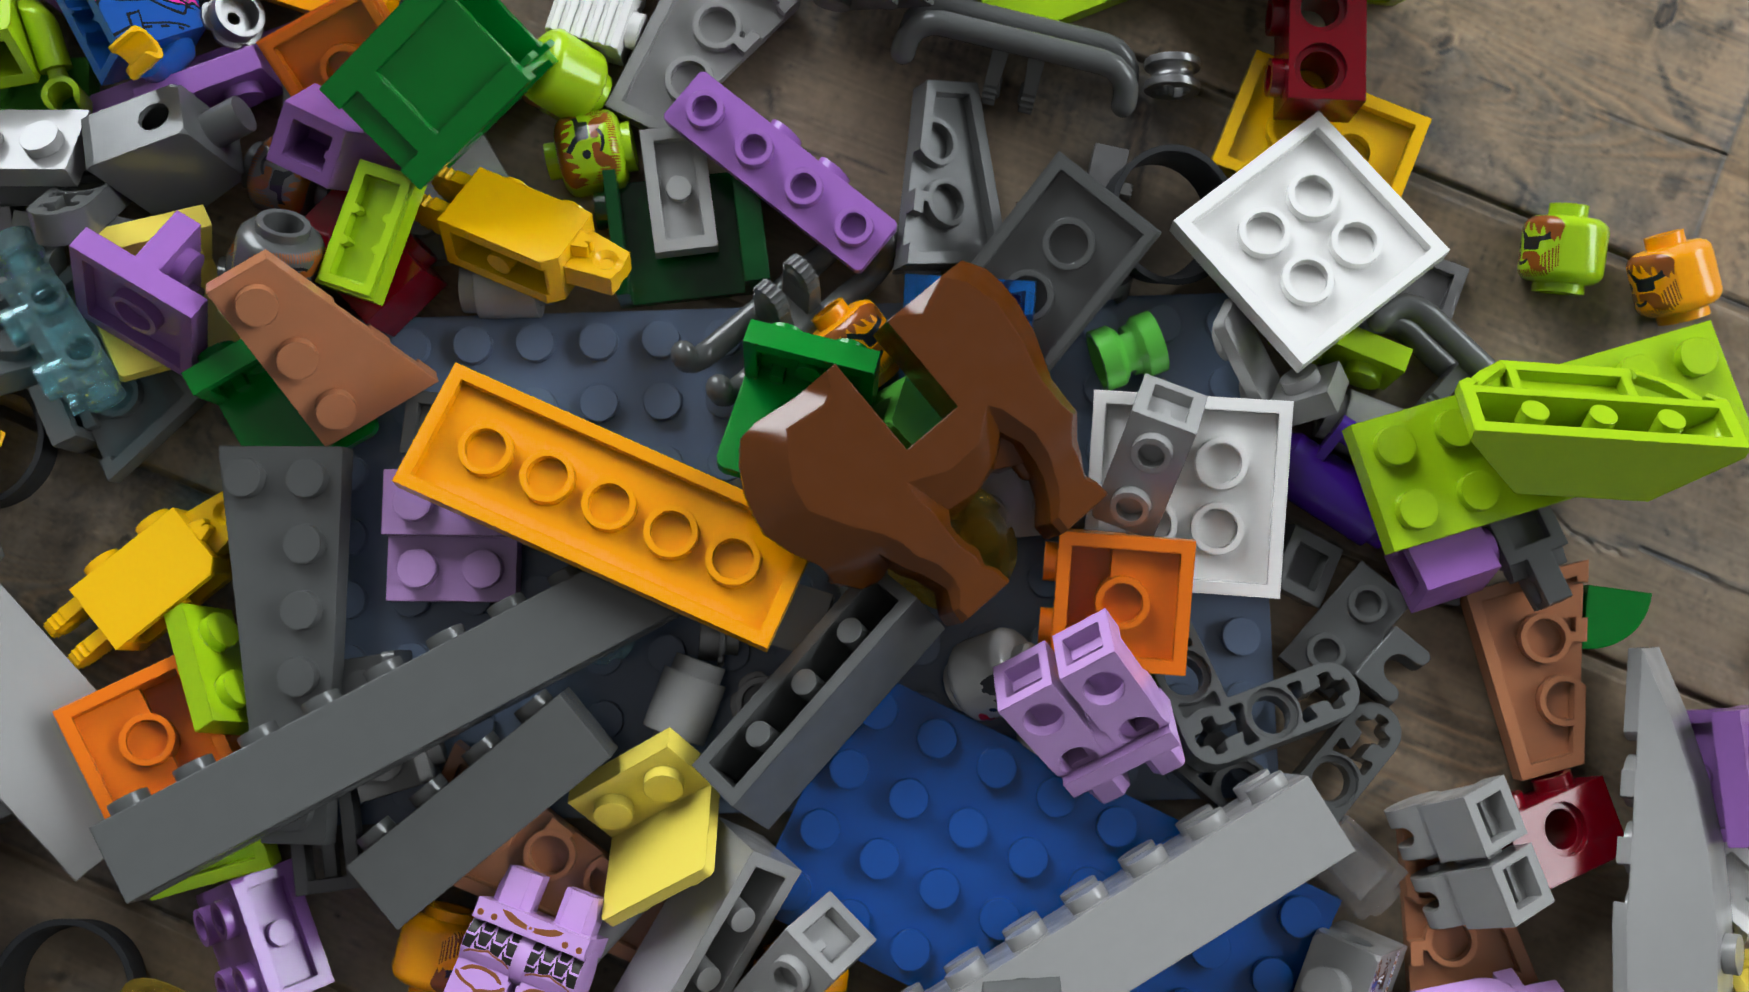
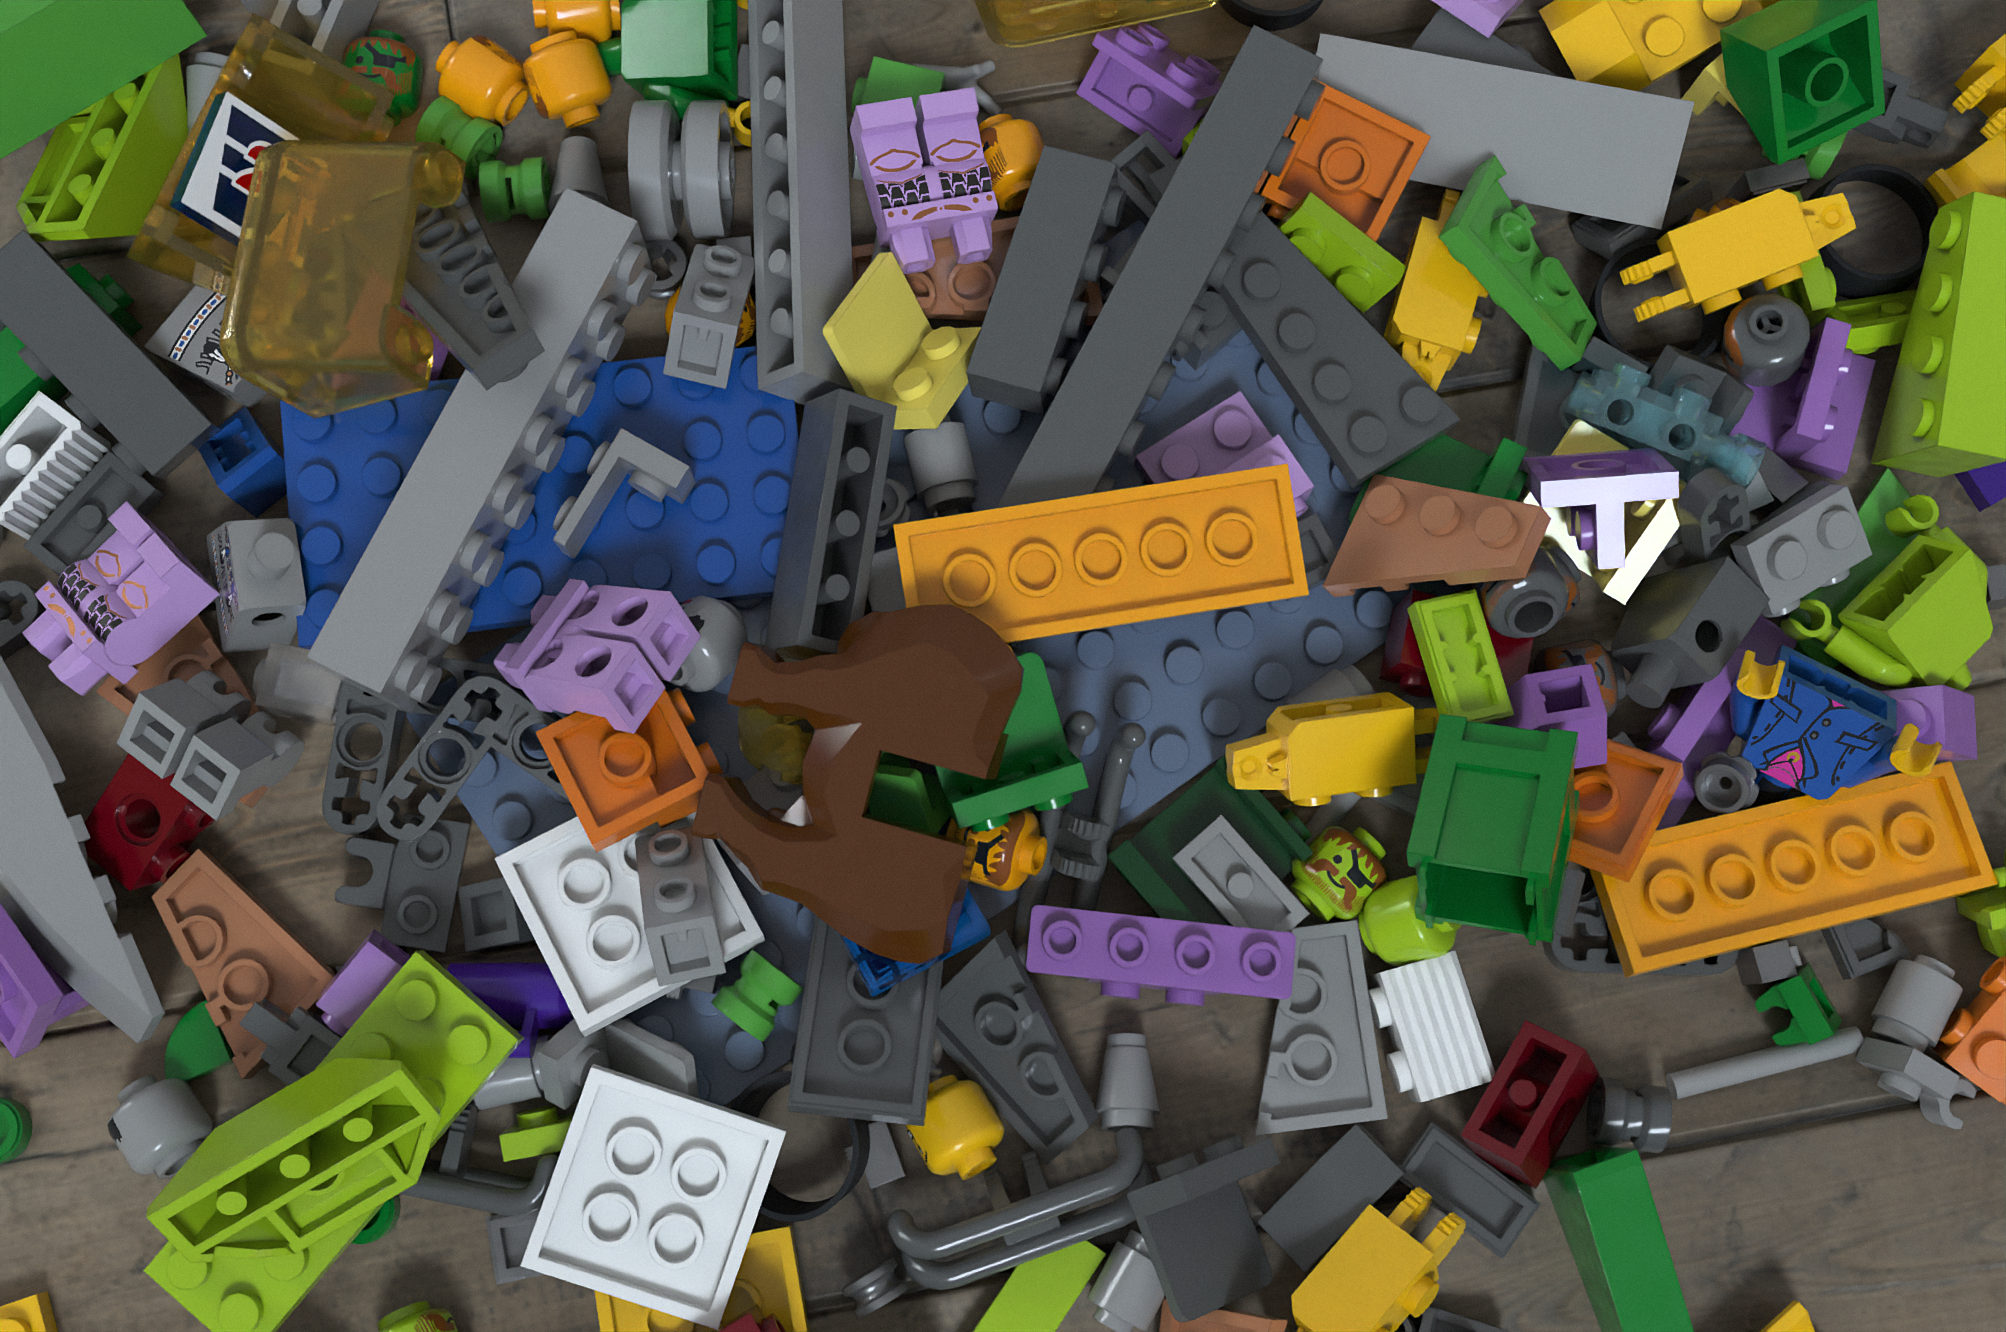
camera: 145 degrees right, 5 degrees down
(74, 567) = (1502, 255): none -> bright green wing
(875, 100) = (1127, 1085): none -> light grey cone
(945, 848) = (651, 473): none -> light grey bracket
(1026, 147) = (958, 1129): none -> yellow head
(1676, 564) = (158, 1125): none -> light grey head

